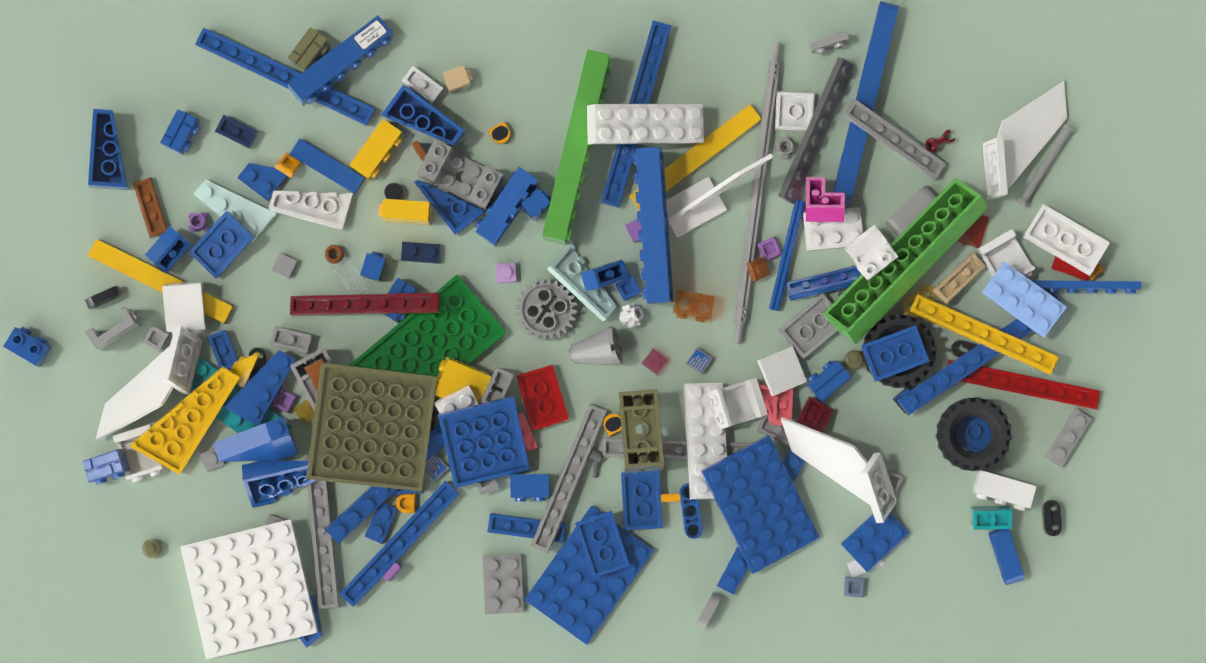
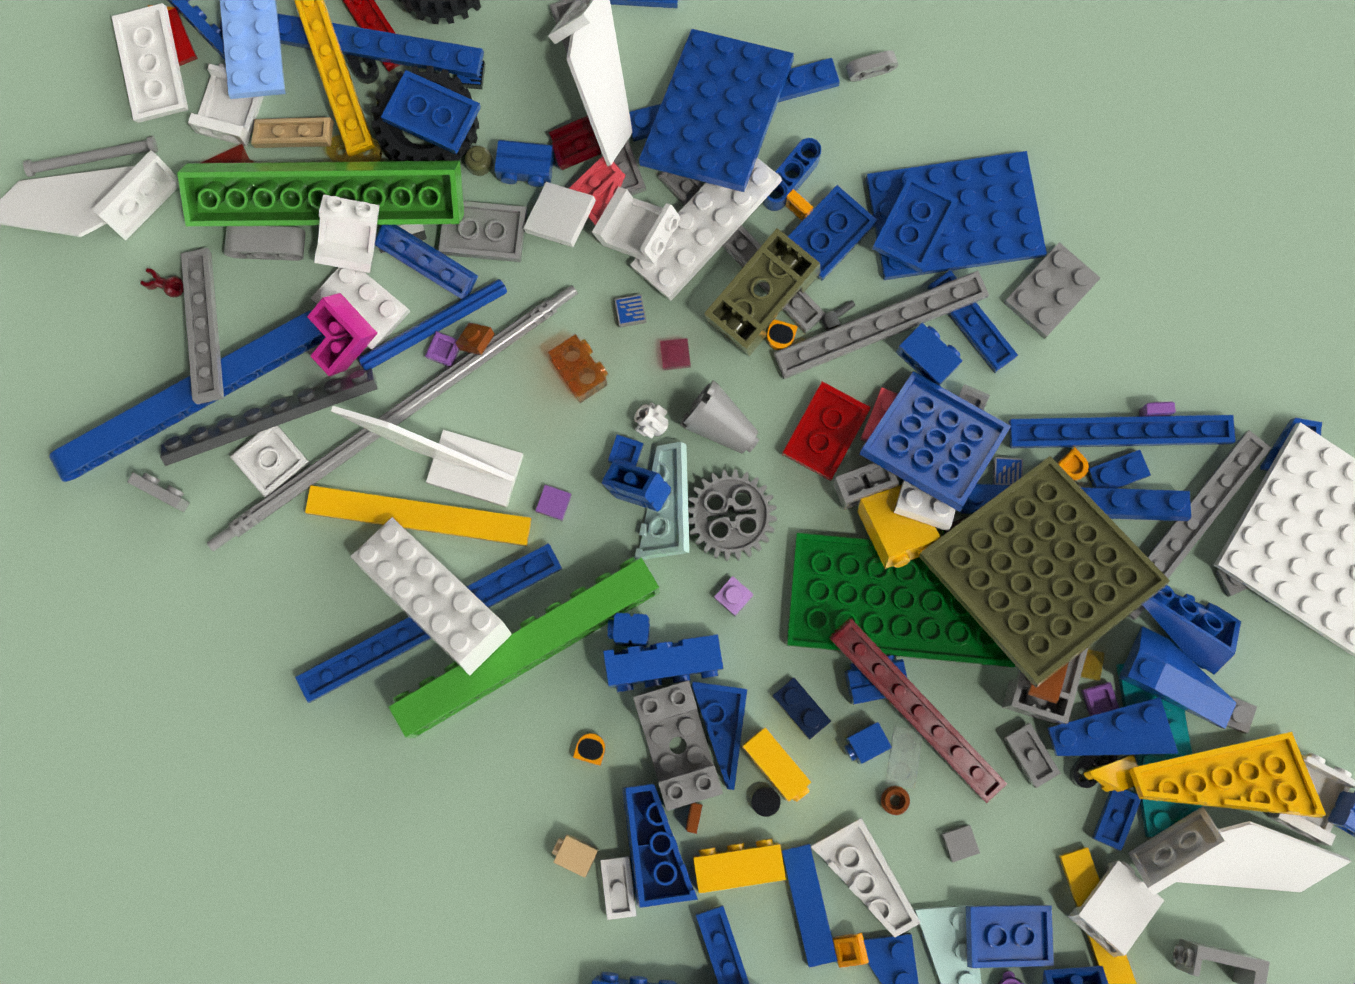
camera: 135 degrees left, 5 degrees down
(156, 338) = (1179, 906): light grey plate -> none
(654, 225) = (535, 478): blue brick -> none
(780, 147) = (311, 429): light grey plate -> none

